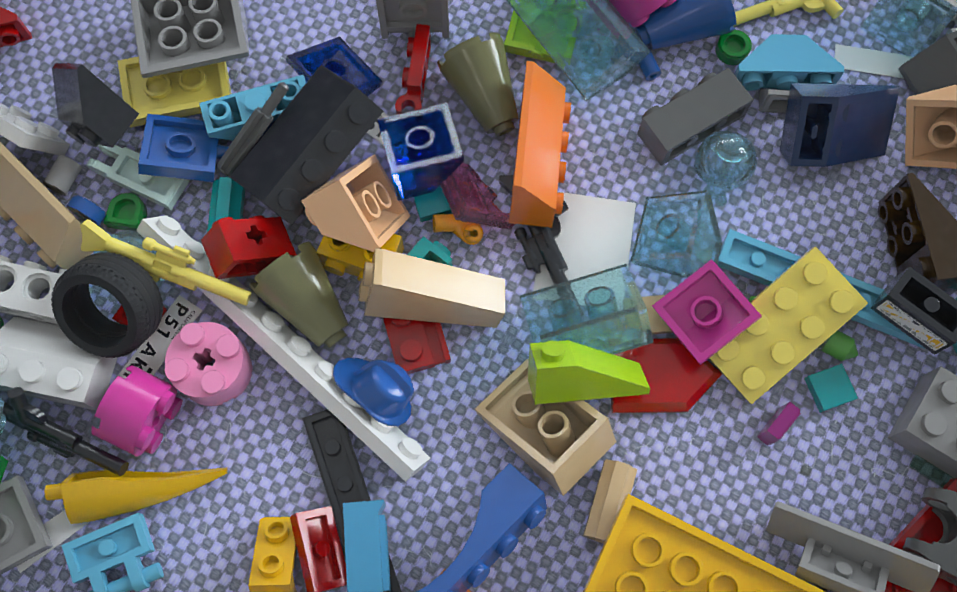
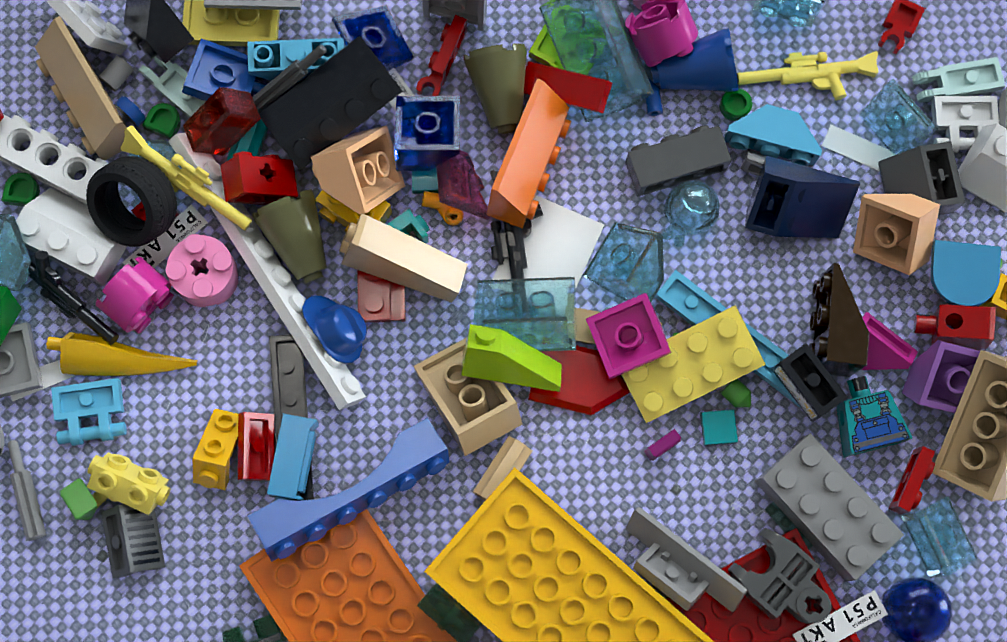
camera: 10 degrees right, 5 degrees up
(190, 192) = (221, 121): none -> clear red brick
(567, 65) = (572, 87): none -> red tile

